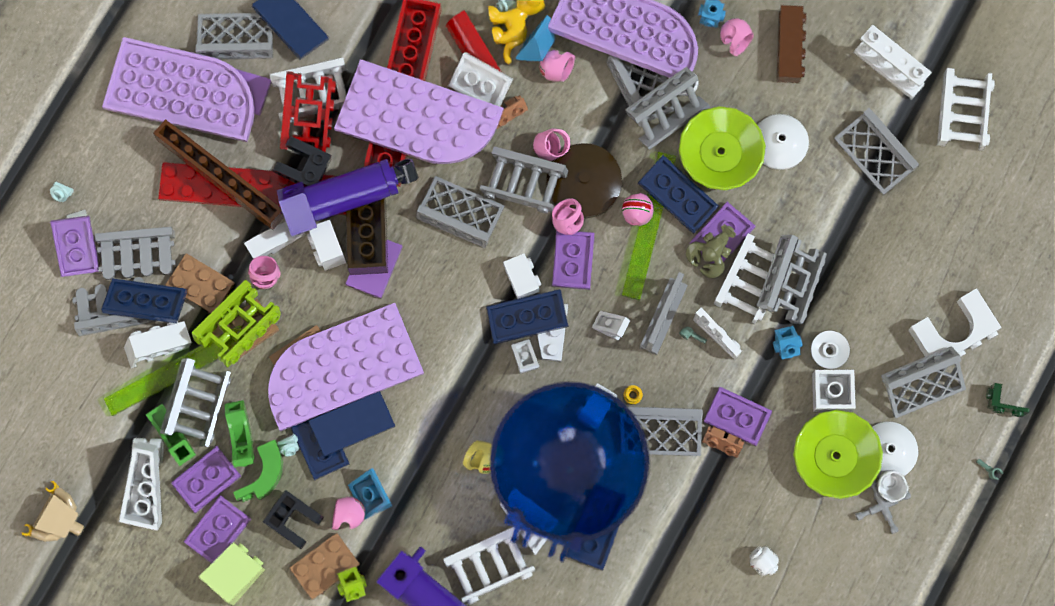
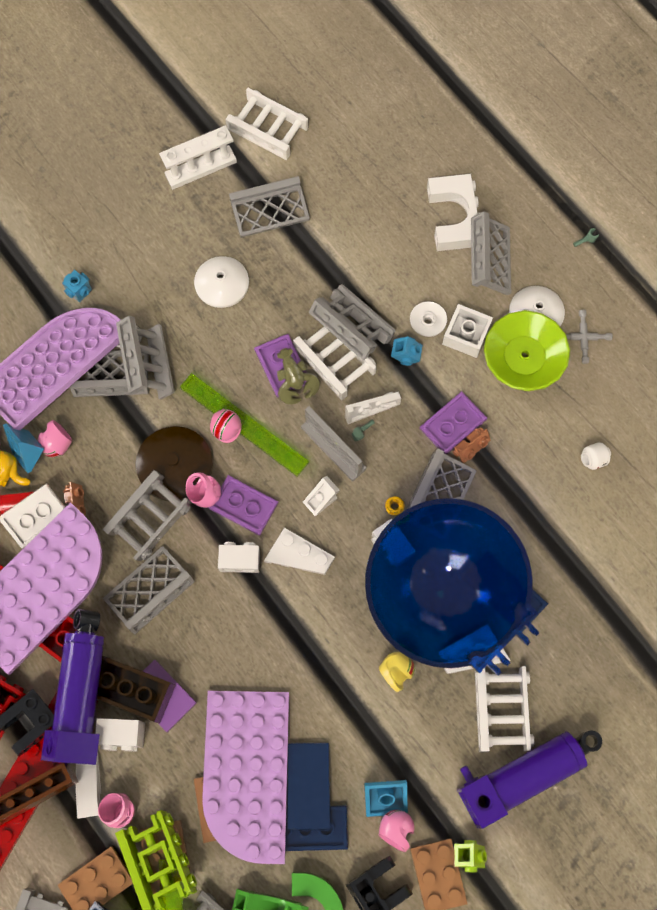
camera: 65 degrees left, 5 degrees down
(288, 445) = (302, 861): light aqua plate -> none
(525, 356) = (317, 588): white slope -> none
(527, 316) = (279, 569): dark blue tile -> none
(547, 144) = (126, 481): bright pink helmet -> none
(678, 194) = (227, 386): dark blue tile -> none
(724, 130) = (204, 312): lime dish -> none
(738, 33) = (106, 270): bright pink helmet -> none
(790, 44) = (139, 234): reddish brown brick -> none
(892, 486) = (572, 319): white hair -> none
(993, 394) = (530, 208): dark green bracket -> none

